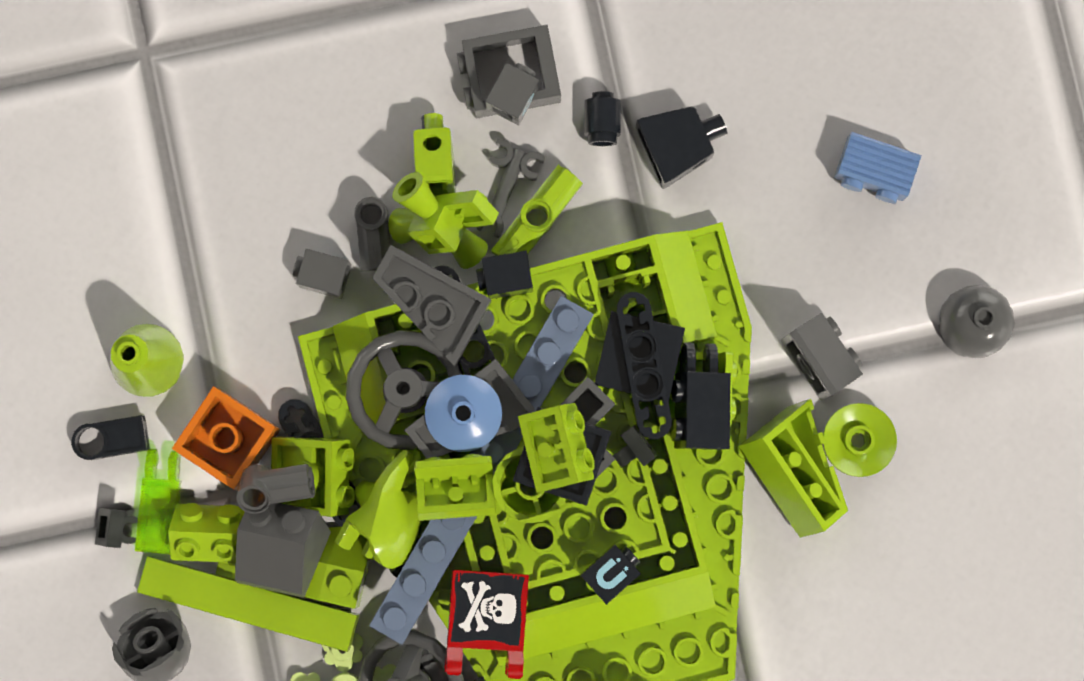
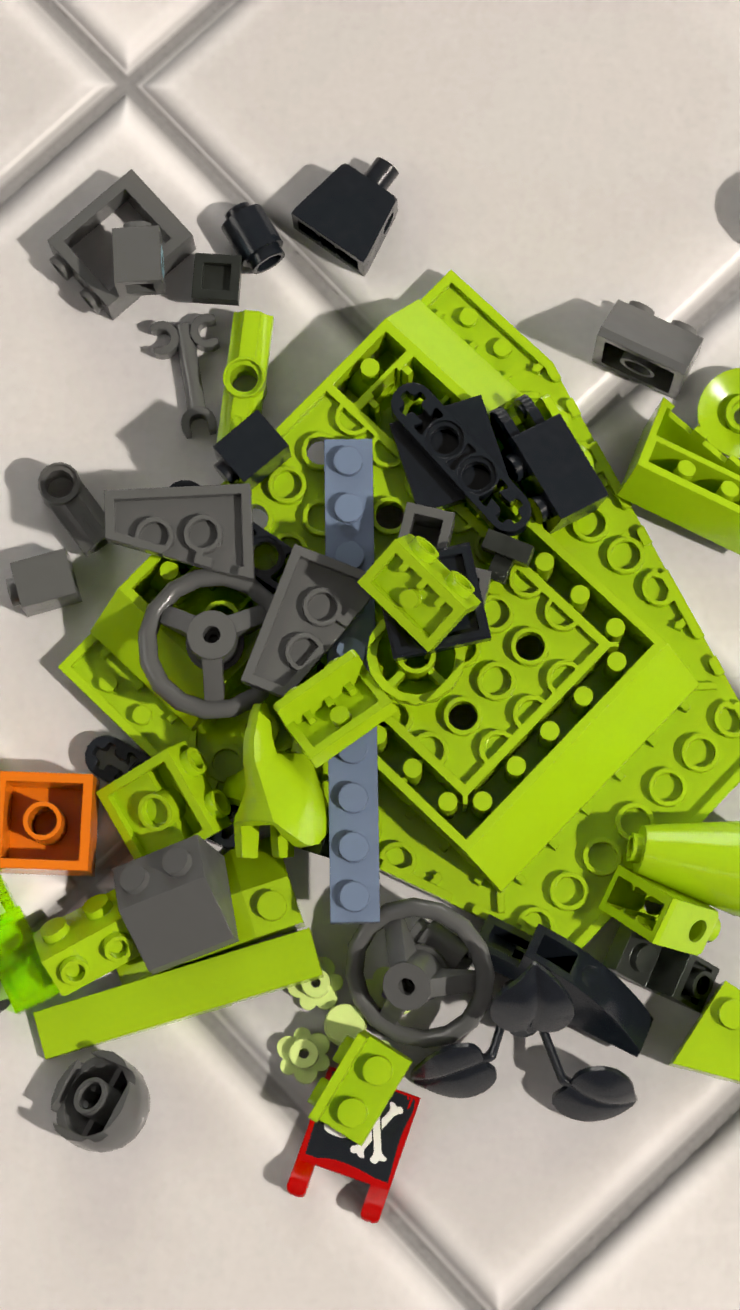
camera: 25 degrees left, 5 degrees down
(273, 486) = (135, 832): dark grey piece -> none
(435, 154) = (97, 388): lime torso -> none
(441, 220) = (142, 440): lime brick -> none
(484, 418) = (300, 647): medium blue dish -> none
(489, 615) = (454, 833): flag -> none
(560, 134) = (216, 279): none -> pearl dark grey tile
(612, 572) = (562, 703): black brick -> none
(877, 167) = (583, 115): medium blue brick -> none

